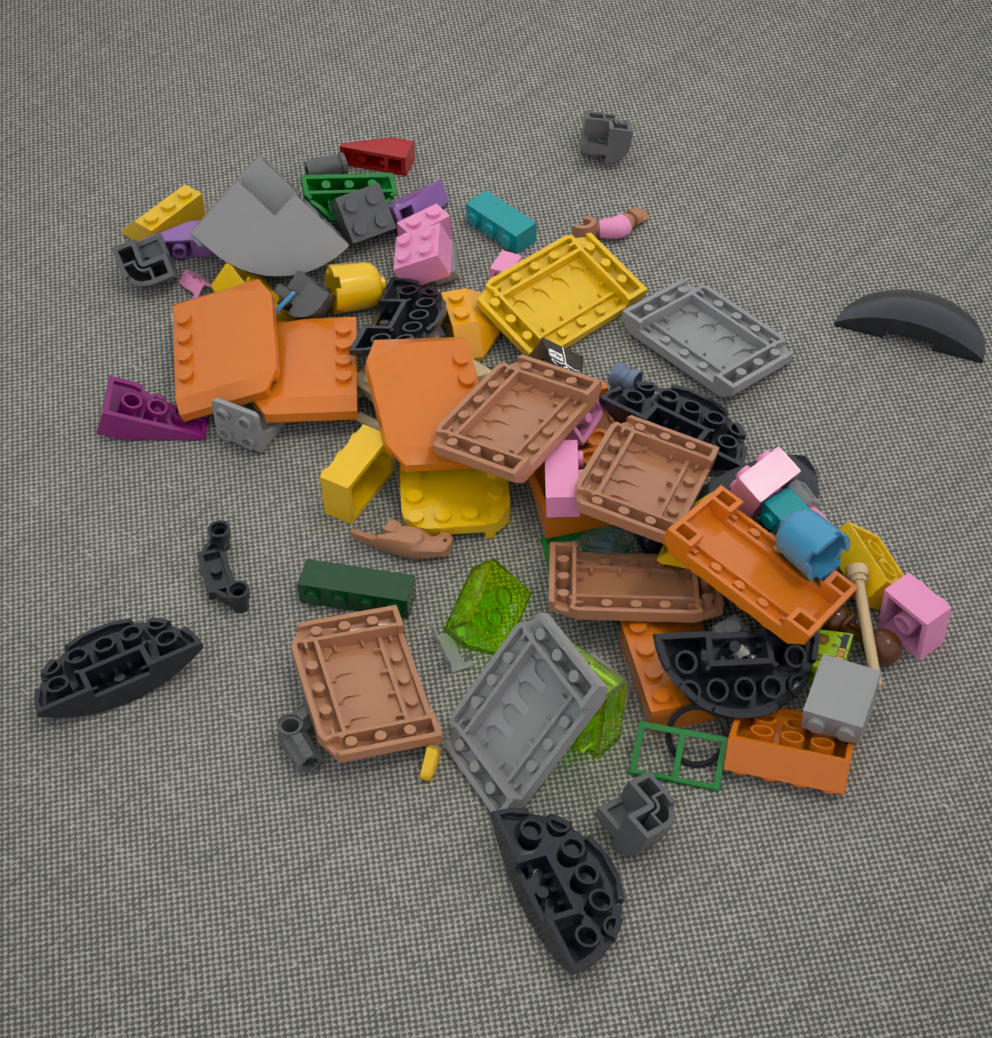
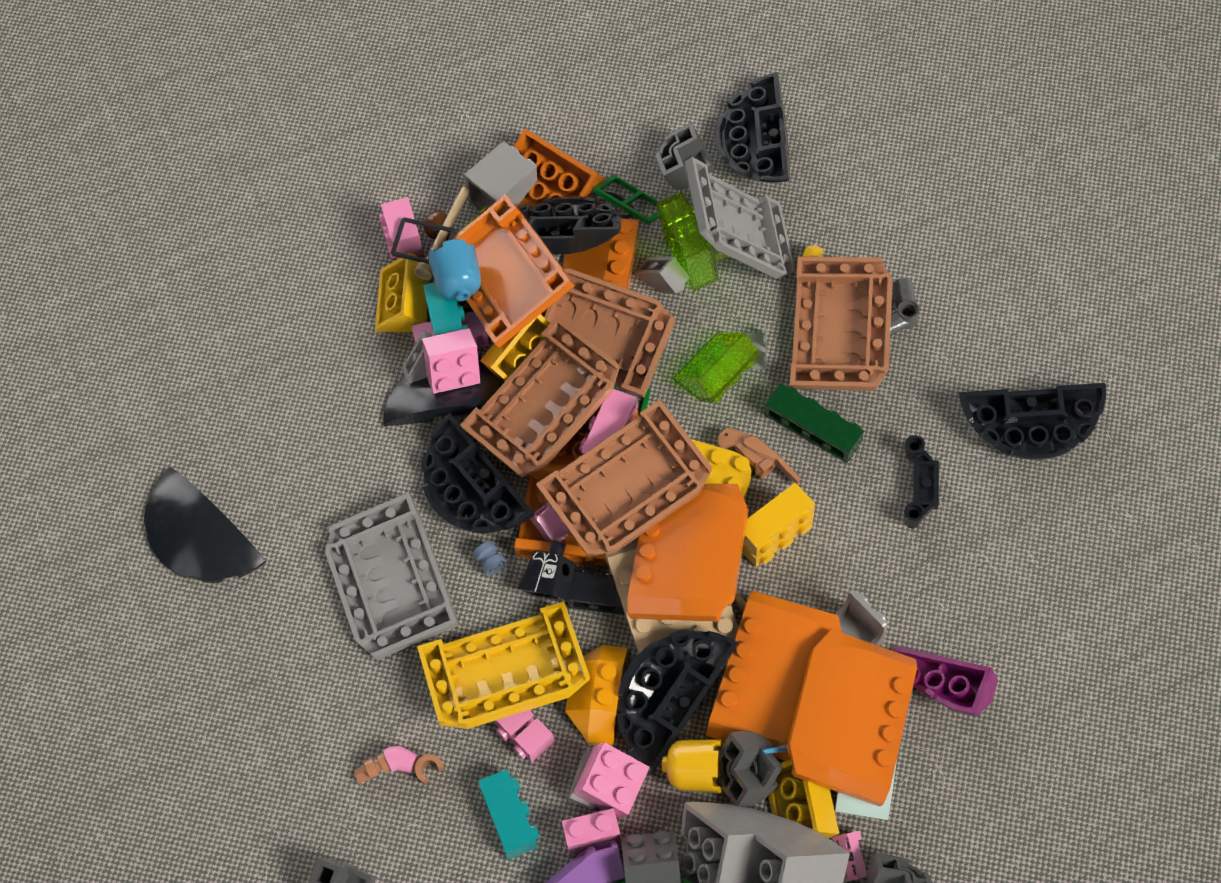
camera: 155 degrees left, 15 degrees up
(909, 594) = (421, 223): none -> black piece

